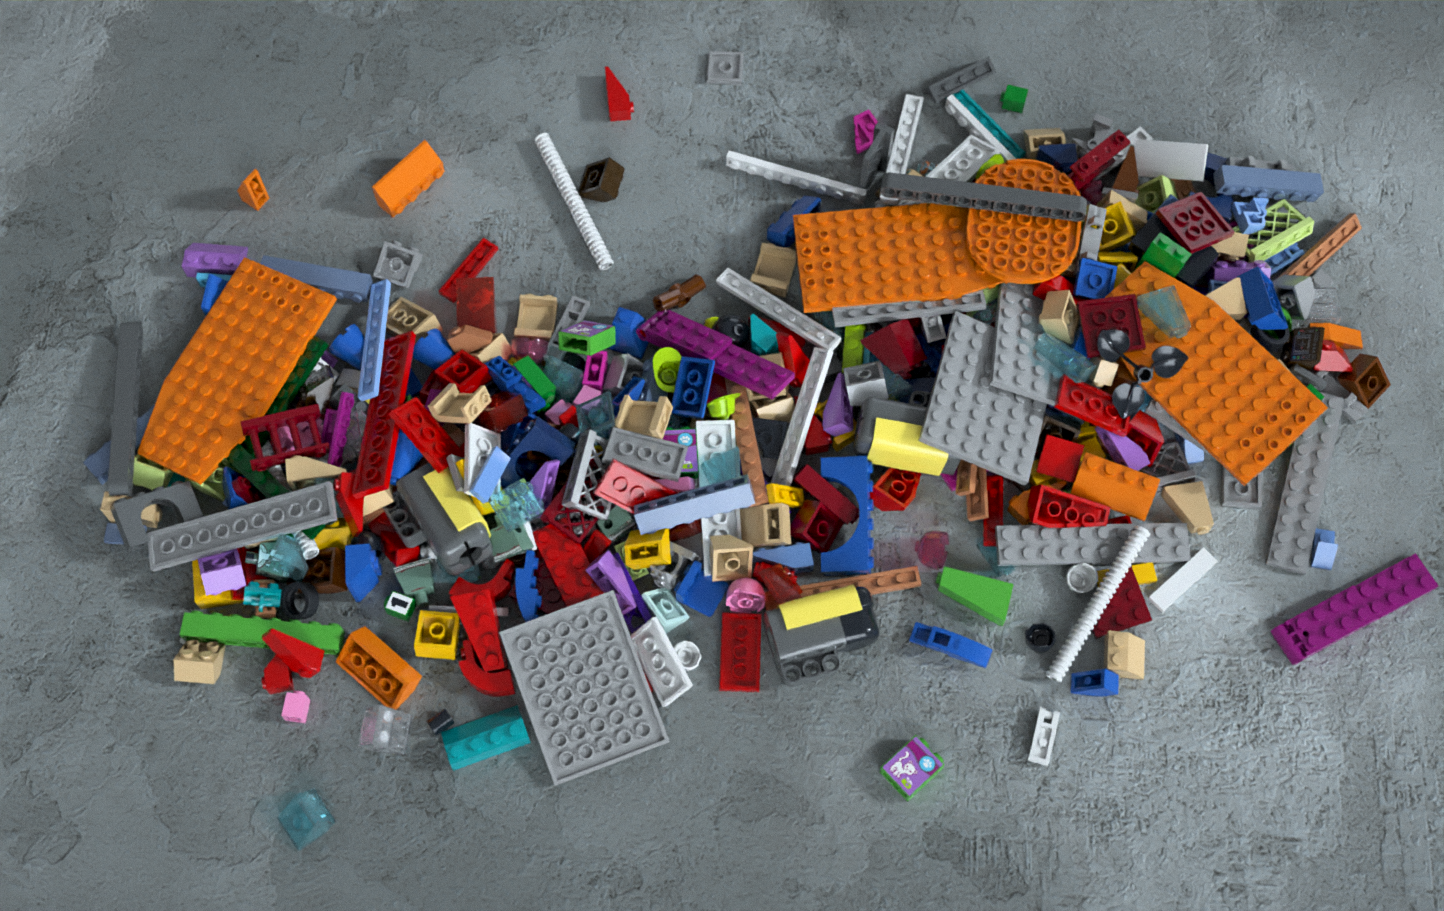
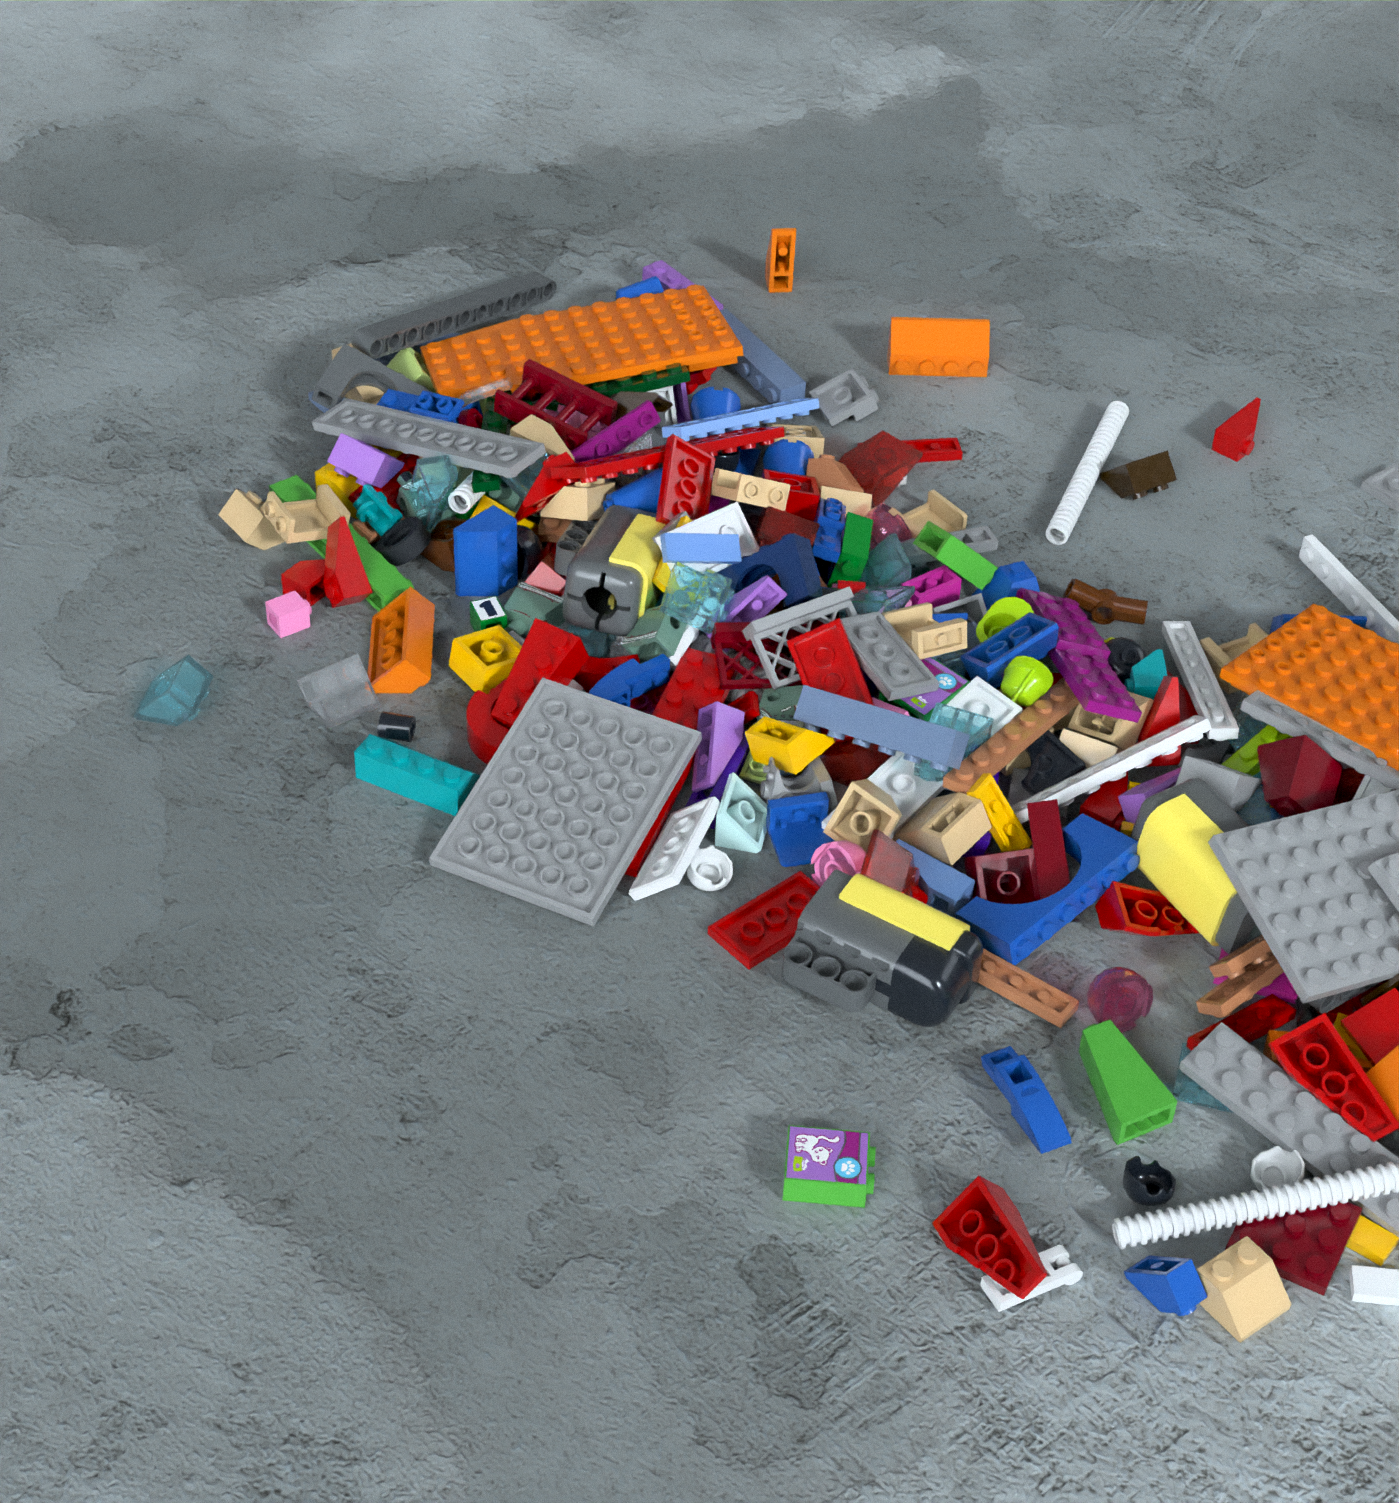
camera: 45 degrees right, 25 degrees down
(206, 505) = (425, 404): none -> blue slope
(233, 461) = (486, 390): none -> clear tile
(238, 640) = (306, 518): none -> tan panel
(1015, 735) = (992, 1236): none -> red wedge

